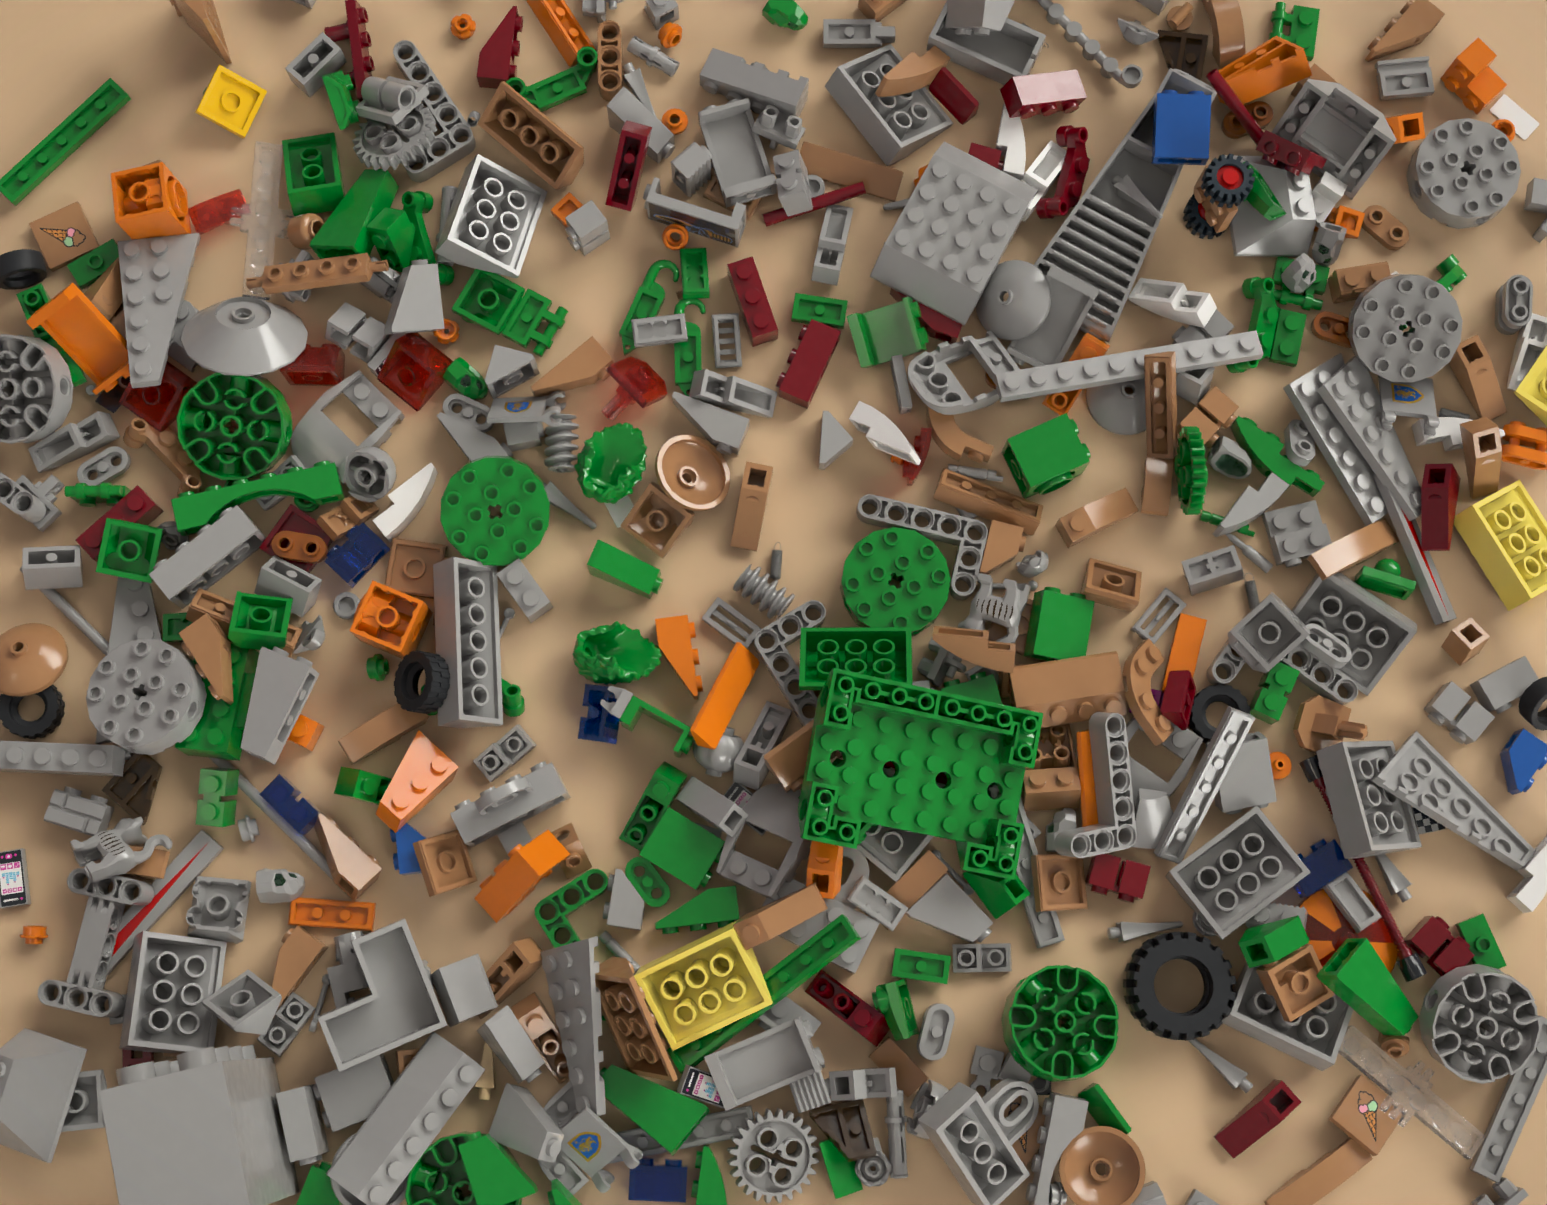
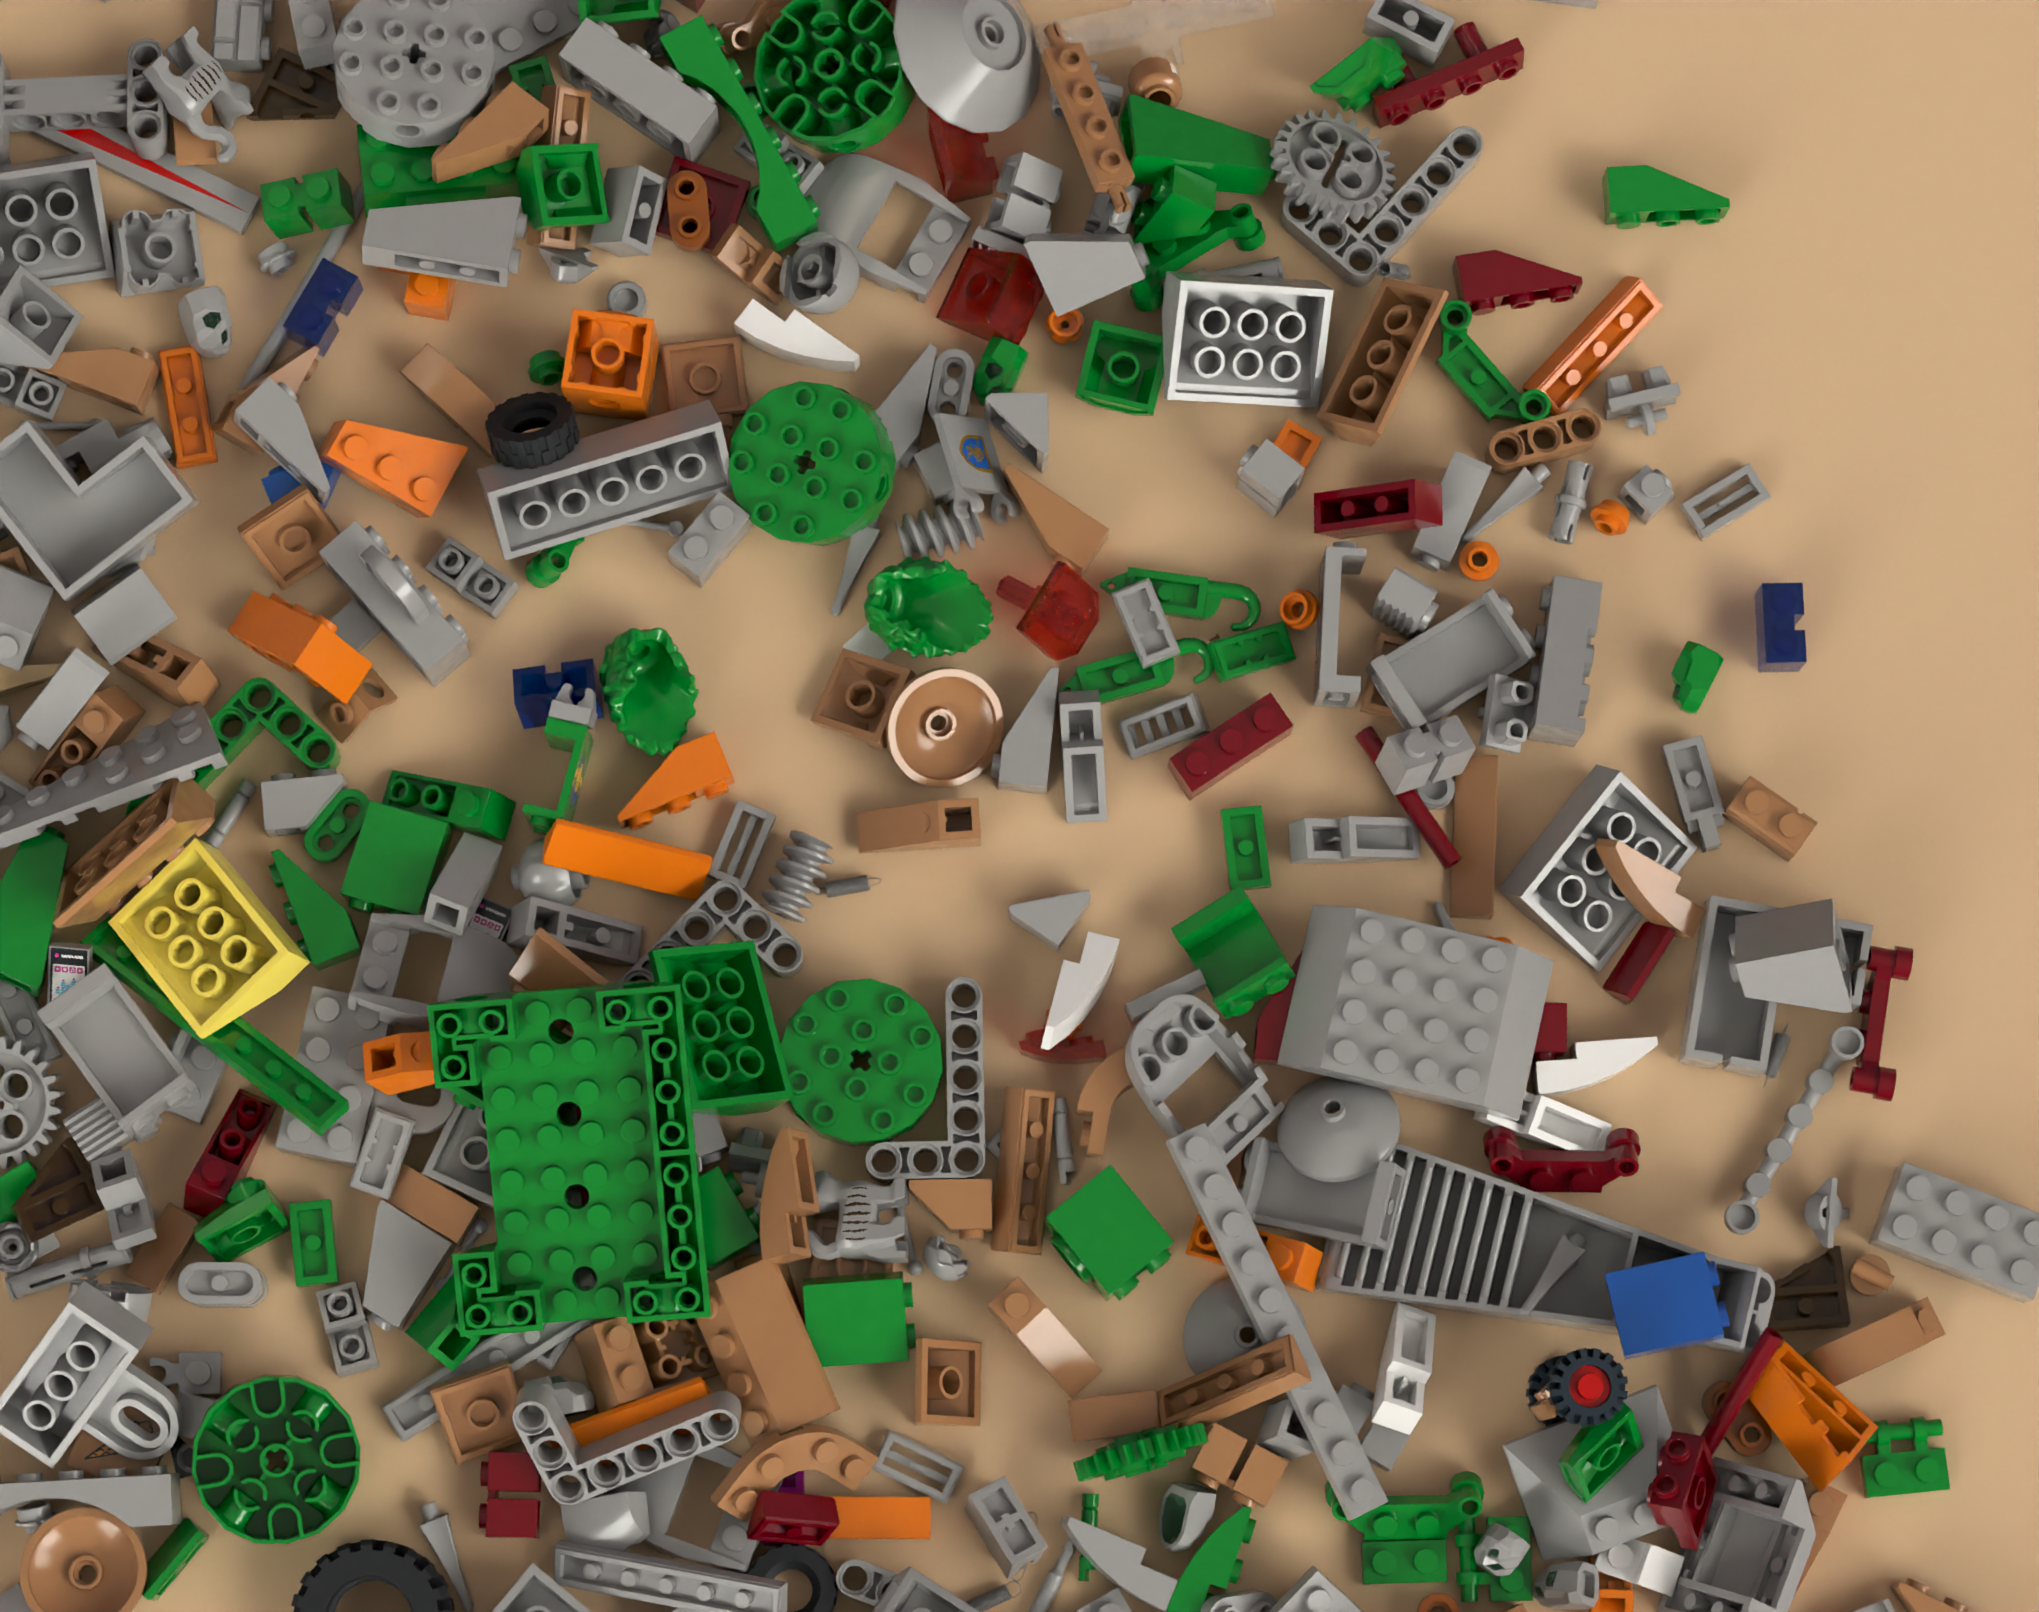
camera: 75 degrees right, 0 degrees up
(34, 934) = (62, 19): orange plate -> none
(313, 173) = (1245, 70): green slope -> none
(357, 554) = (701, 293): clear blue brick -> none
(361, 785) = (373, 392): green slope -> none
(374, 848) = (280, 429): none -> light grey slope
(389, 99) = (1382, 143): light grey plate -> none
(467, 31) = (1535, 226): orange plate -> none
(527, 318) = (1116, 433): green plate -> none
(624, 570) = (775, 669): green slope -> none
(779, 916) = (323, 1013): medium nougat slope -> none
(808, 363) = (1159, 852): dark red brick -> none
(1043, 94) = (1674, 1092): brick -> none

